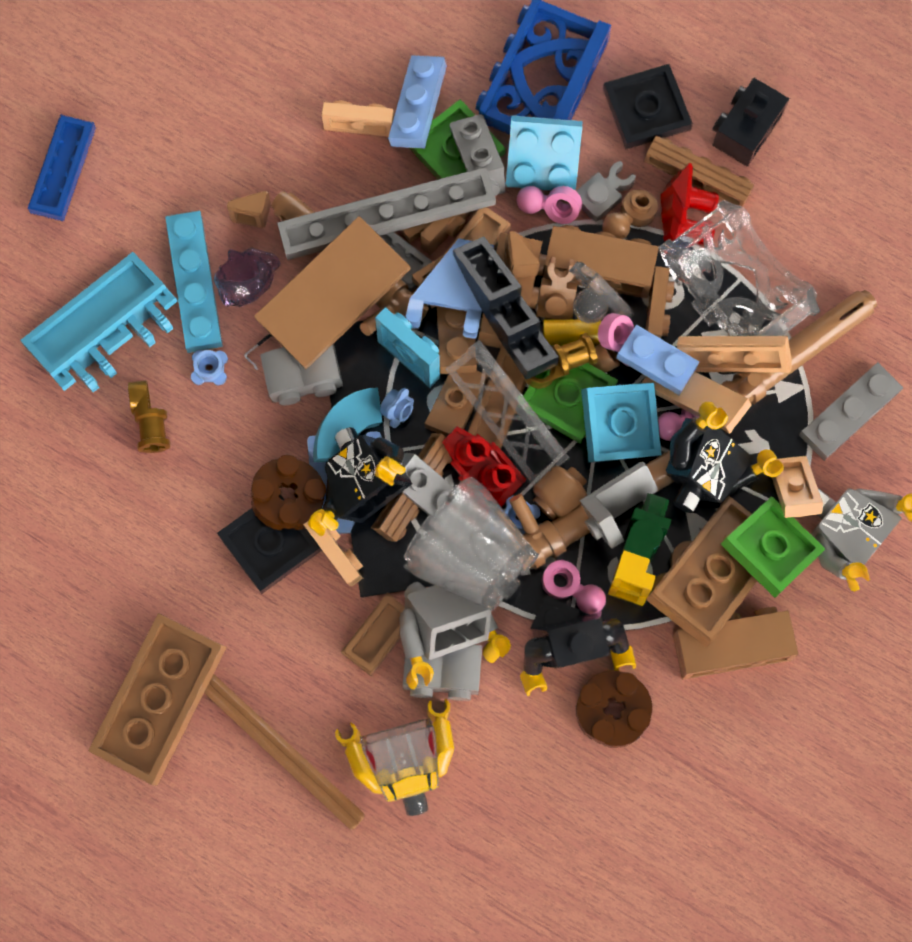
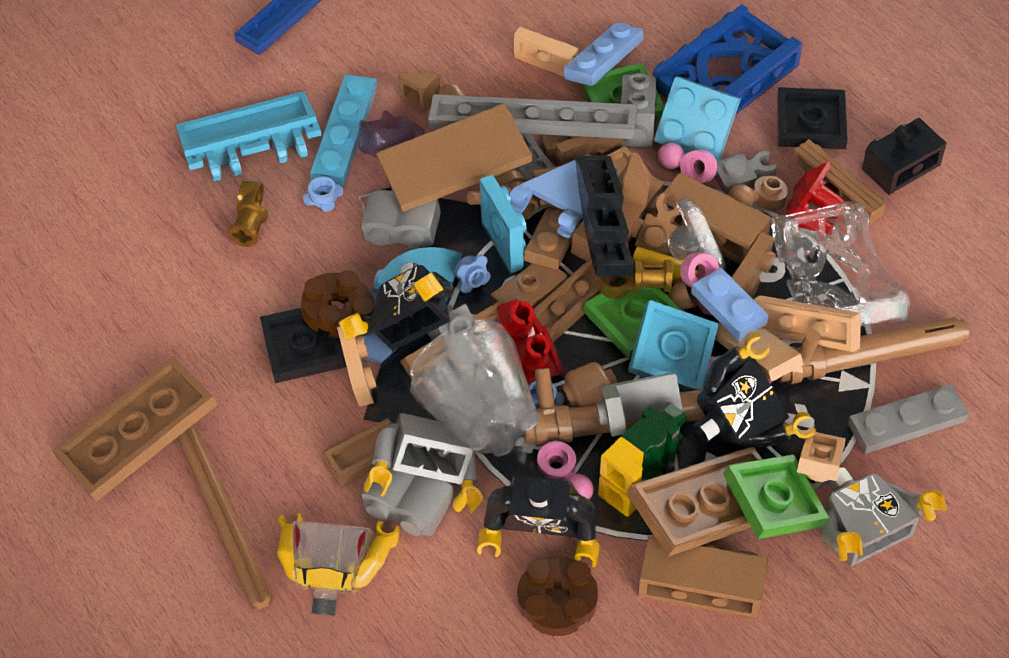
camera: 25 degrees right, 20 degrees down
(517, 403) = (578, 294): clear fence -> none

